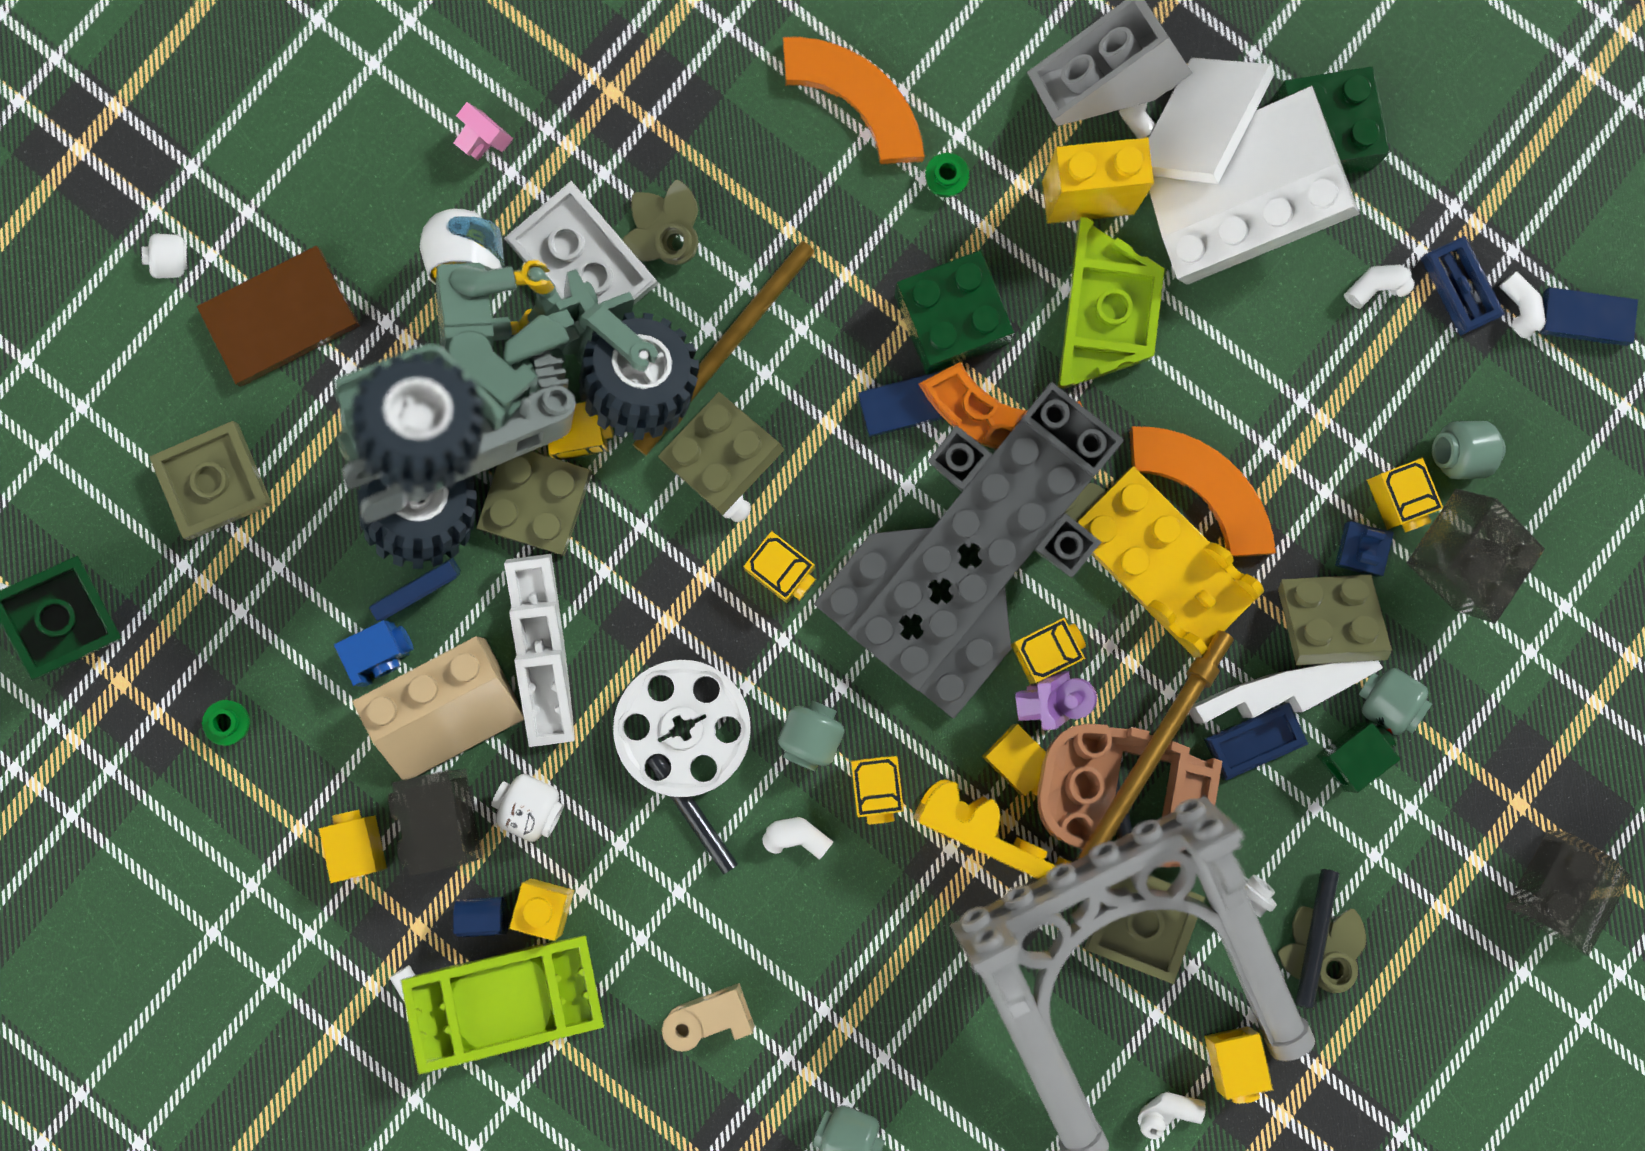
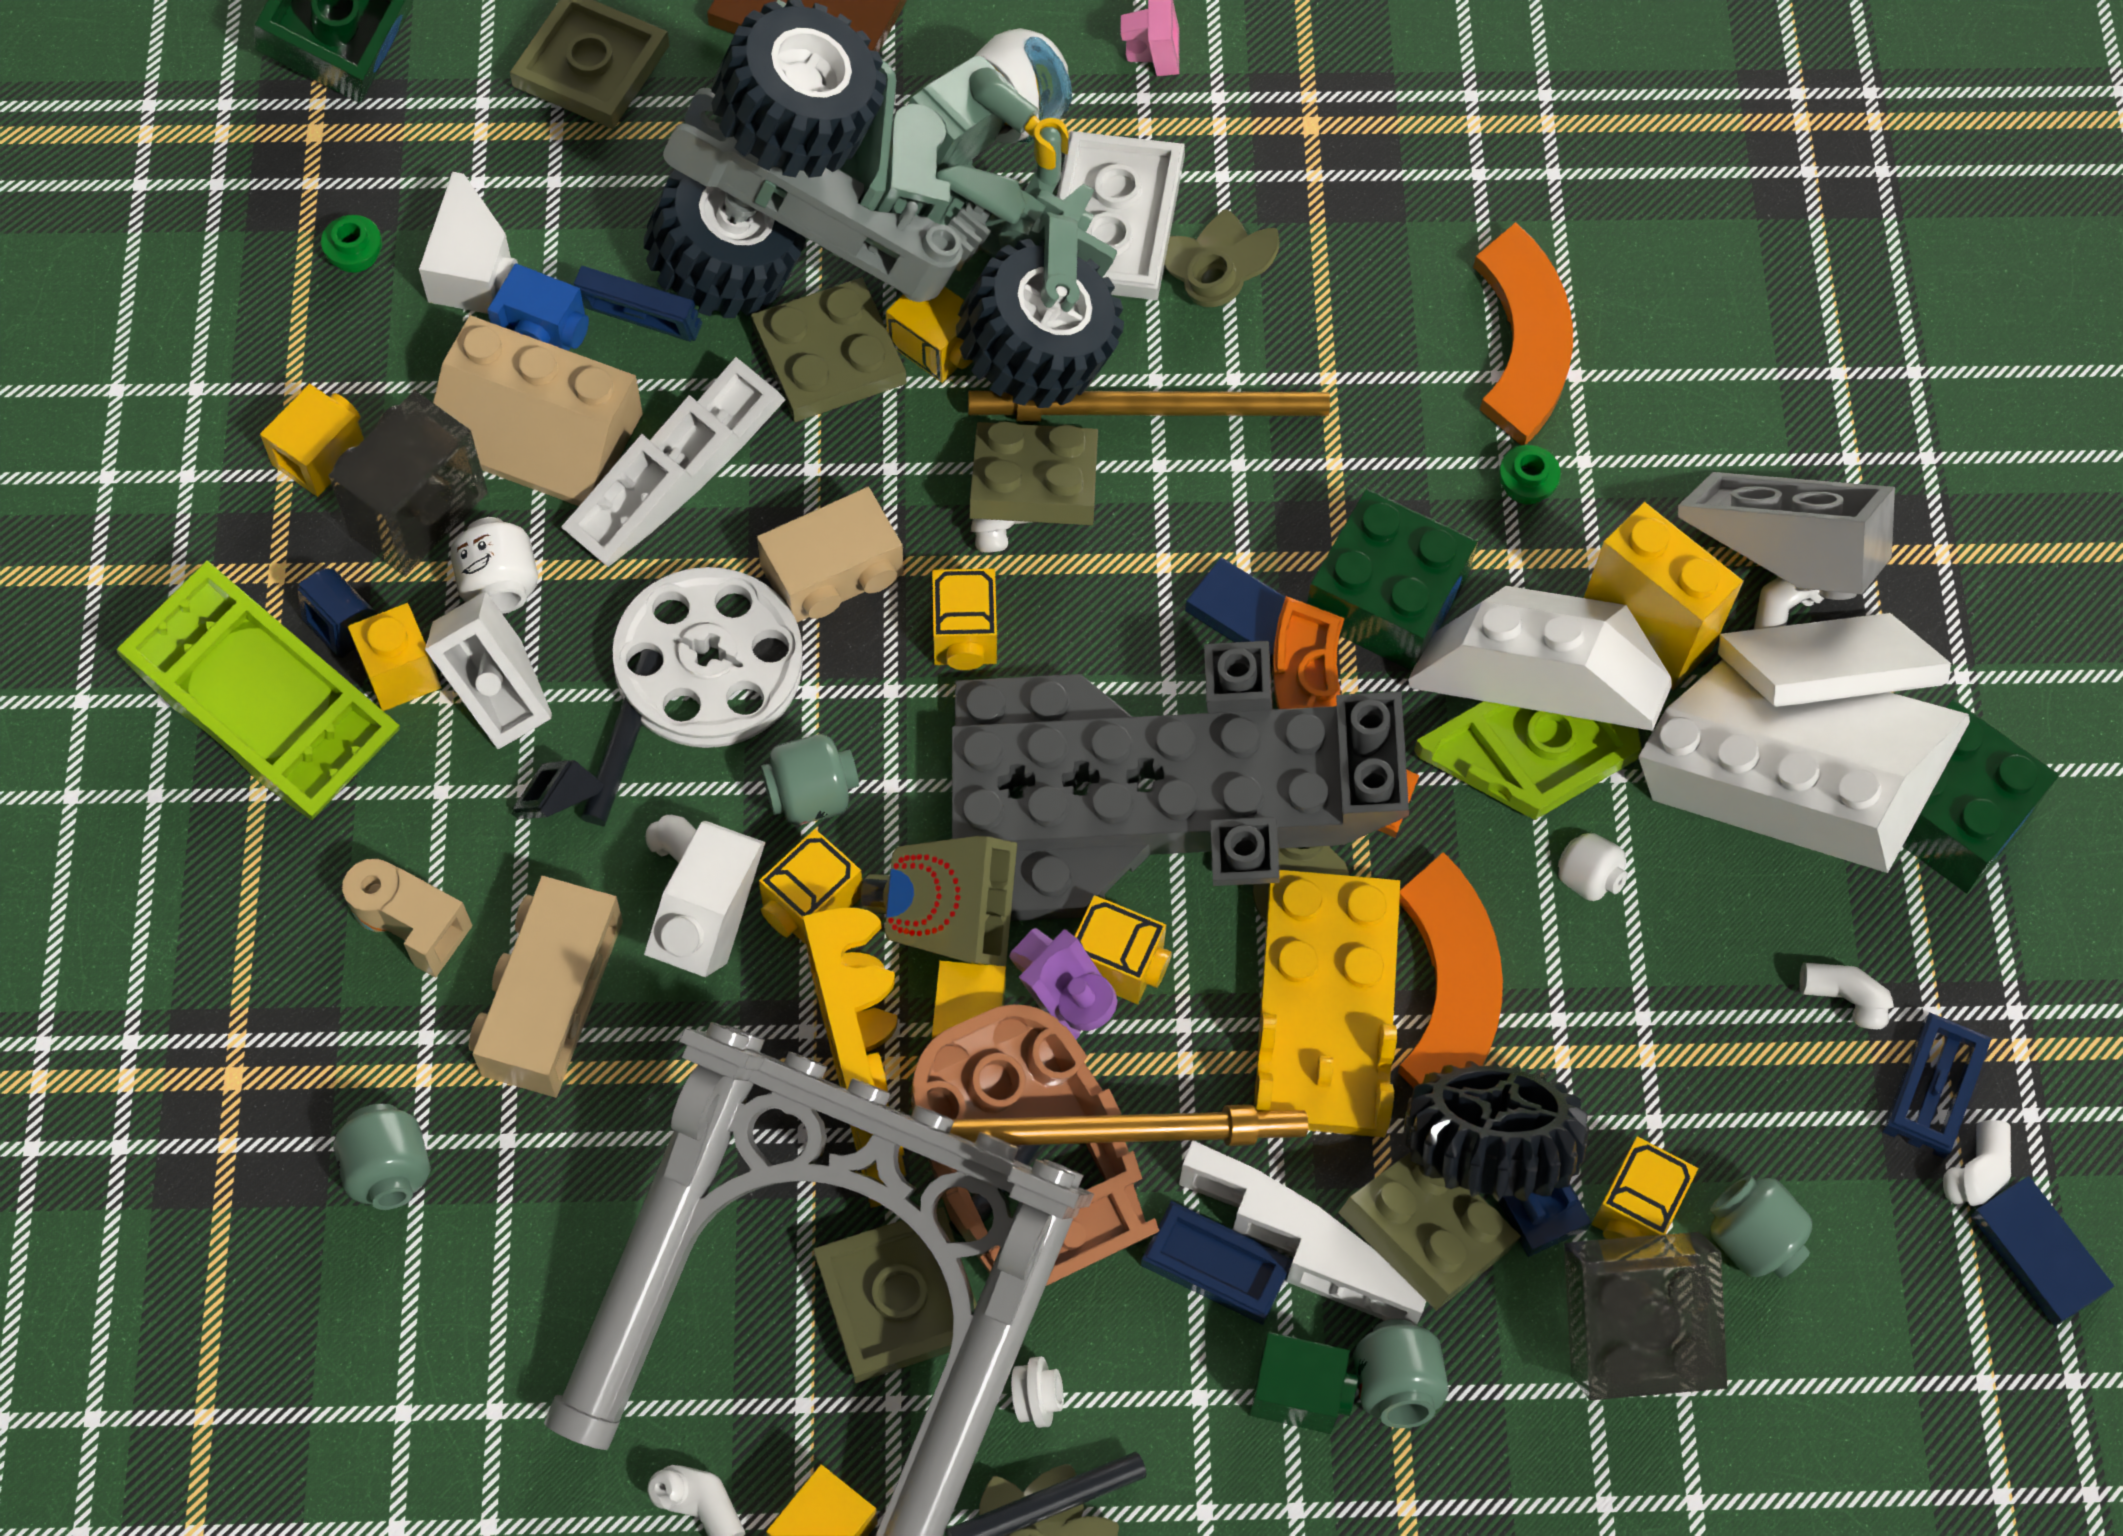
camera: 50 degrees right, 20 degrees down
(294, 662) = (465, 251): none -> white slope
(593, 862) = (488, 669): none -> white slope
(679, 610) = (831, 555): none -> tan brick
(700, 880) = (555, 789): none -> black slope
(817, 976) = (546, 986): none -> tan brick
(845, 855) = (705, 900): none -> white slope
(952, 722) = (948, 897): none -> olive torso
(1077, 271) = (1549, 658): none -> white wedge
(1199, 351) = (1593, 866): none -> white piece
(1339, 523) = (1496, 1130): none -> black gear

